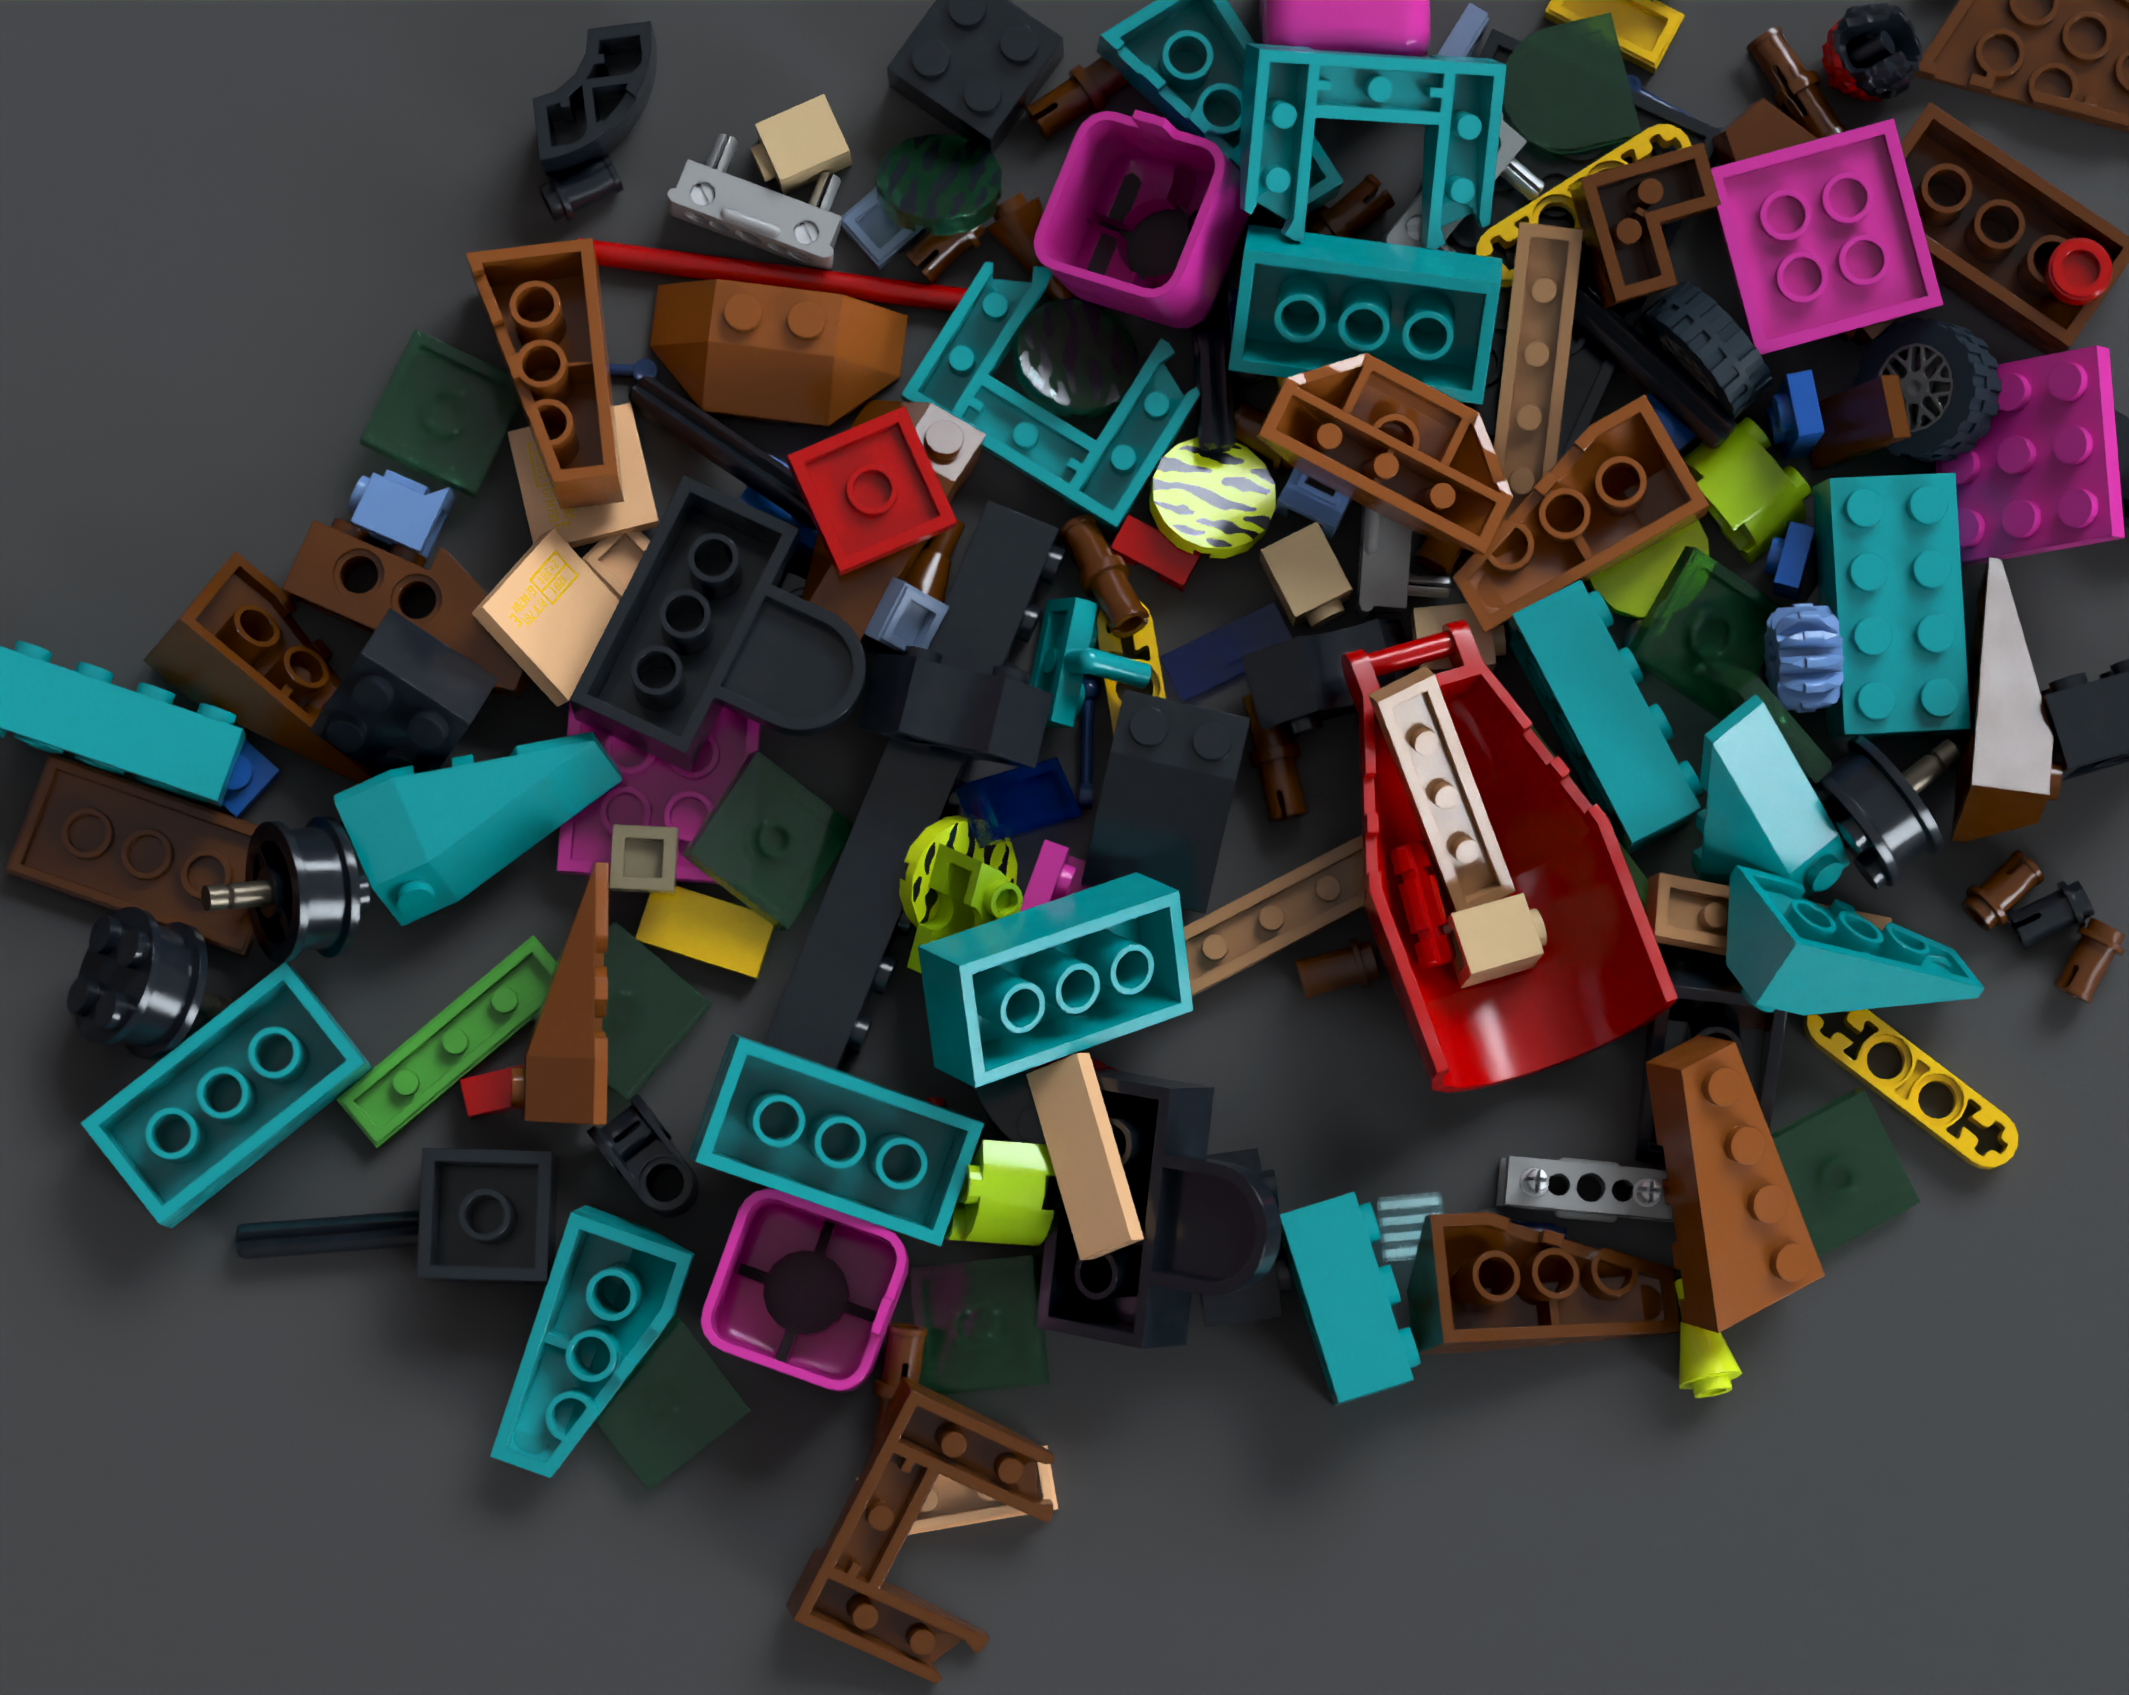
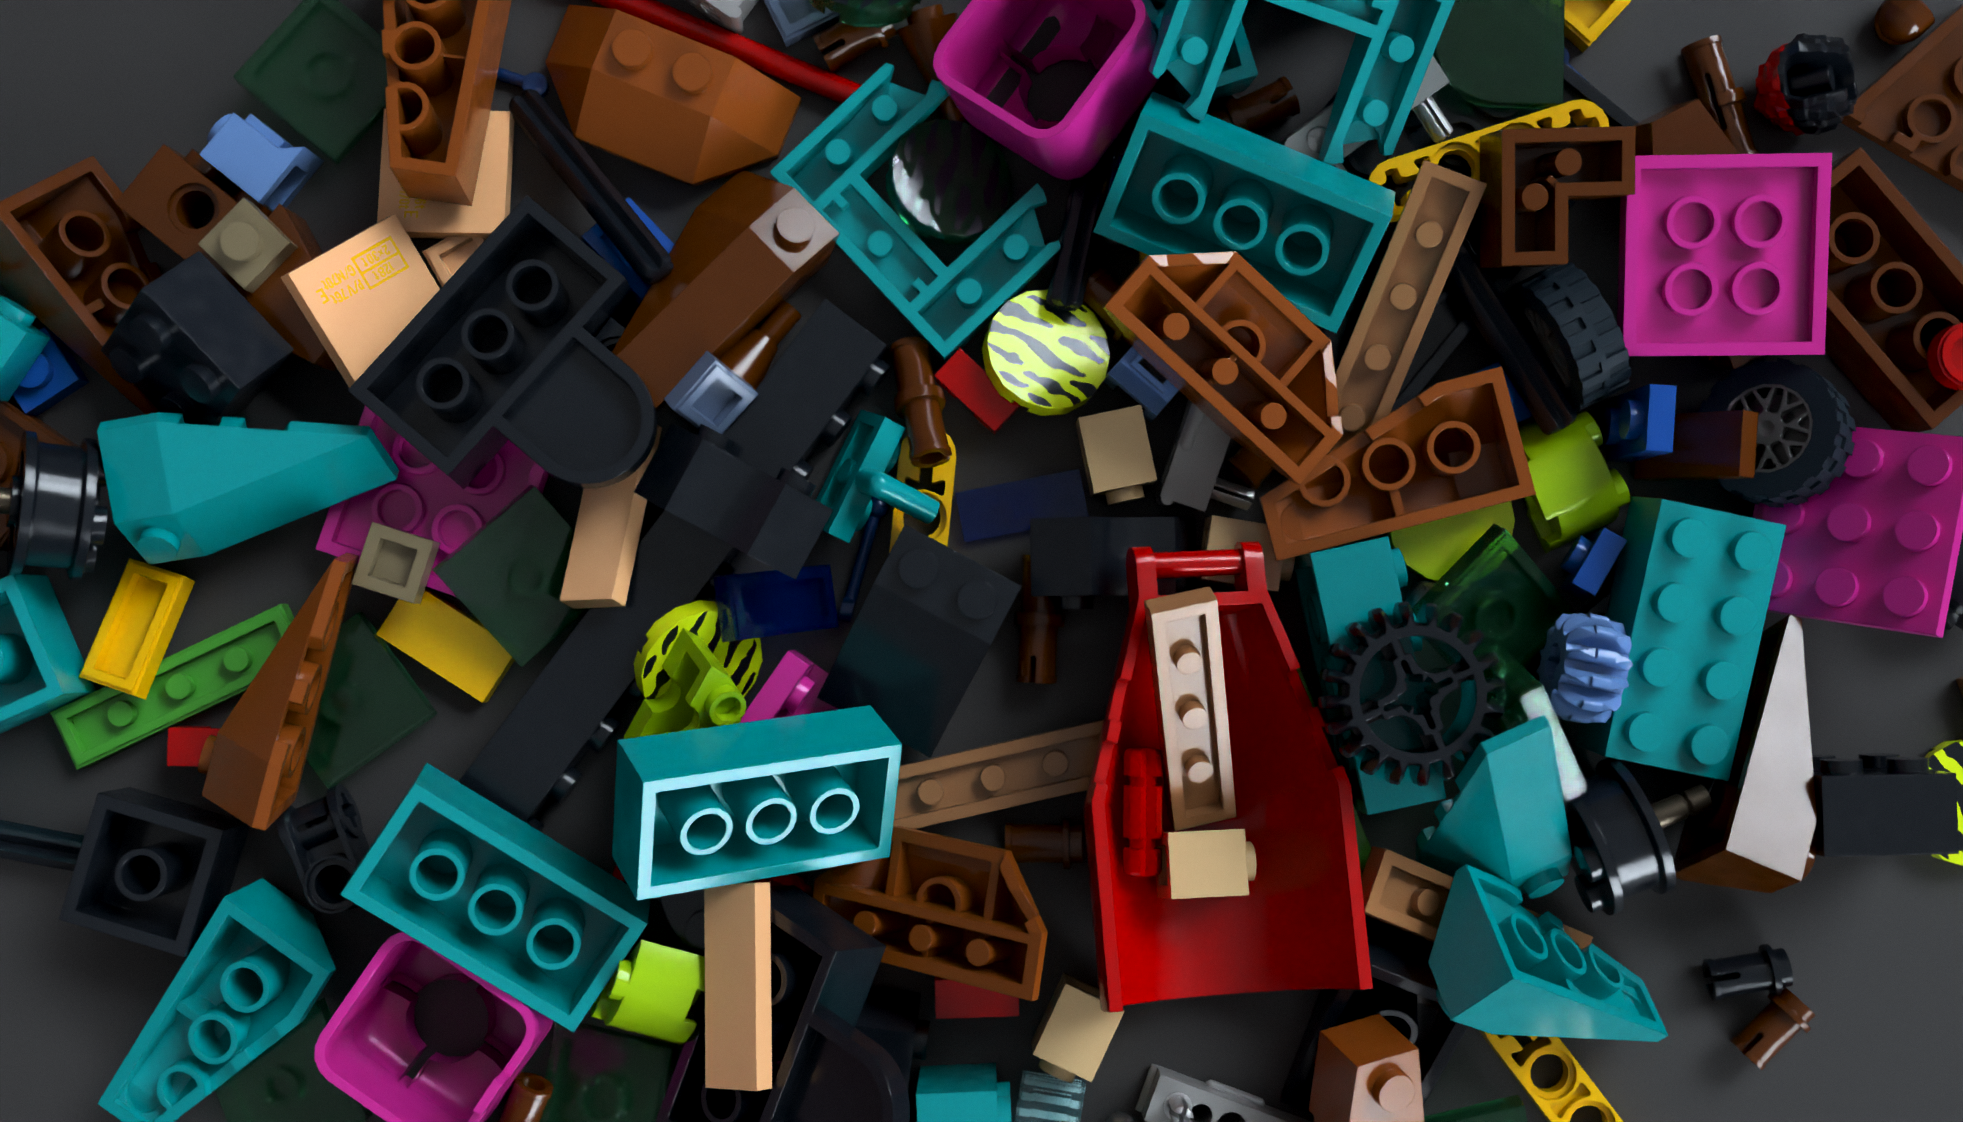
camera: 15 degrees right, 5 degrees up
(401, 994) = (137, 628): none -> yellow tile
(425, 593) = (247, 245): none -> dark tan plate
(840, 787) = (606, 543): none -> light nougat tile
(871, 491) = (705, 259): red plate -> none
(1259, 1043) = (945, 911): none -> dark orange wedge
(1312, 1133) = (967, 1001): none -> red piece
(1417, 1138) = (1074, 1031): none -> tan brick
(1620, 692) = (1427, 721): none -> black gear
(2001, 891) = (1706, 938): reddish brown pin -> none

